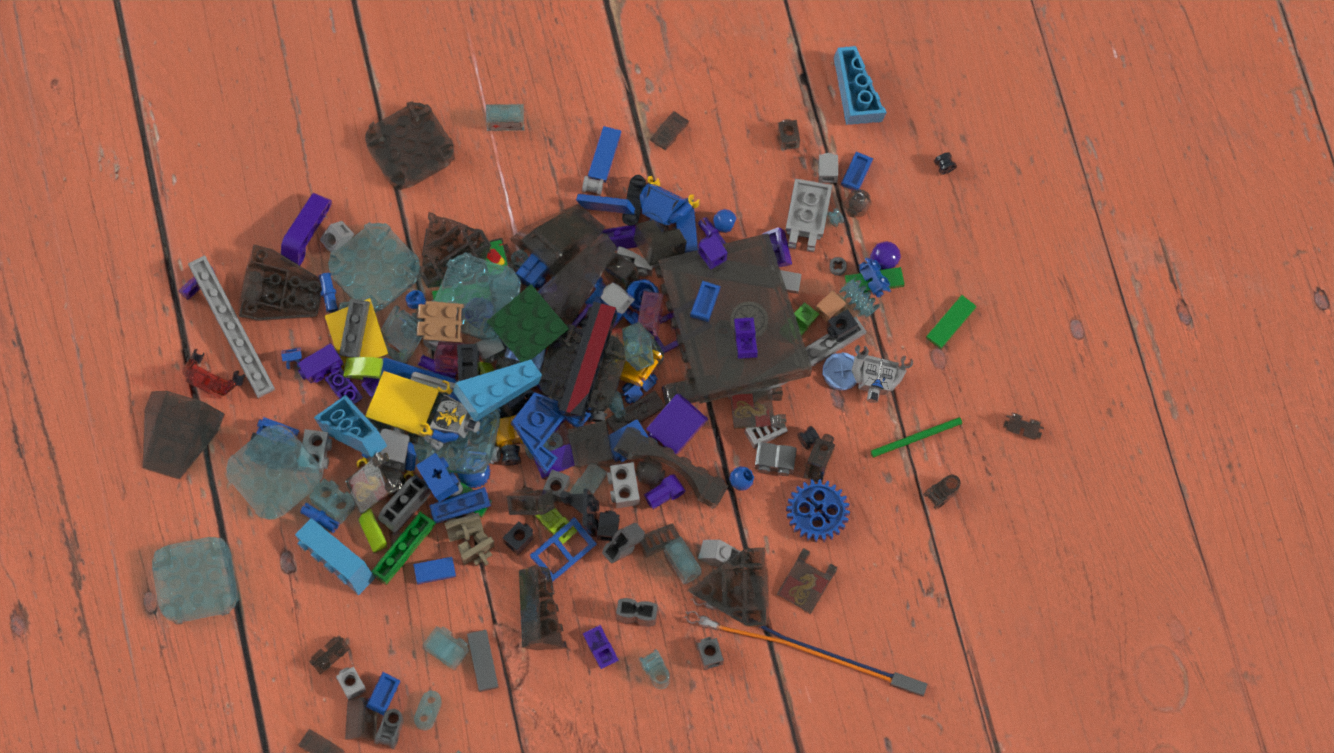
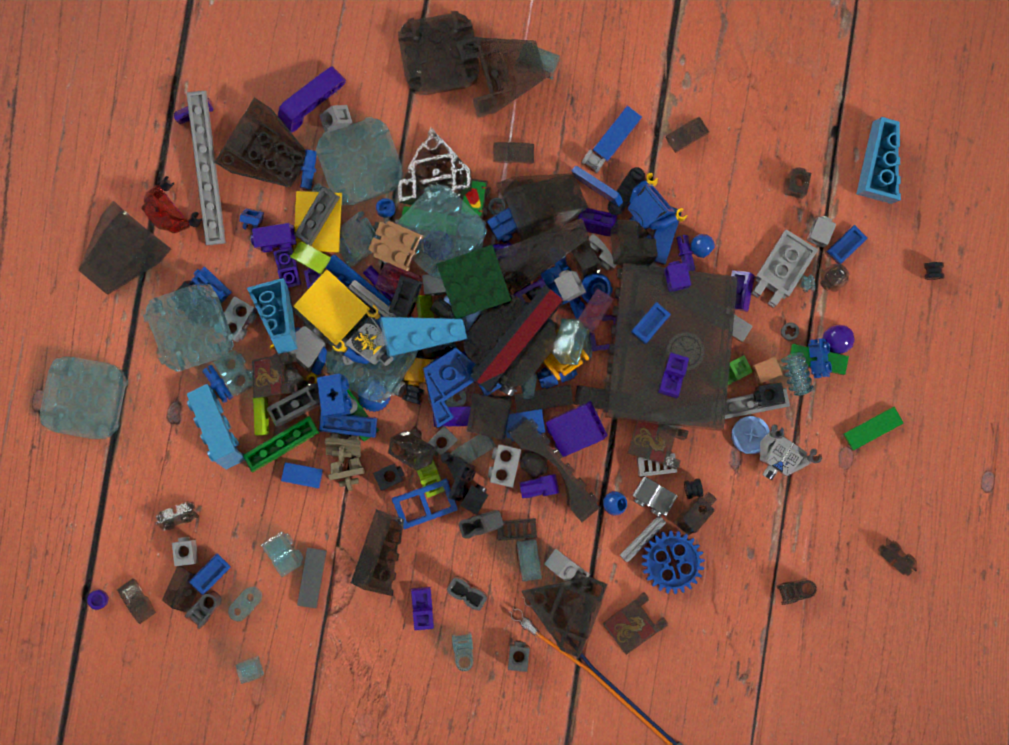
camera: 25 degrees right, 15 degrees up
(480, 134) = (508, 69): none -> clear smoke wedge
(515, 205) = (513, 152): none -> clear smoke slope
(781, 502) = (642, 539): none -> light grey axle
(916, 437) = (793, 526): green piece -> none

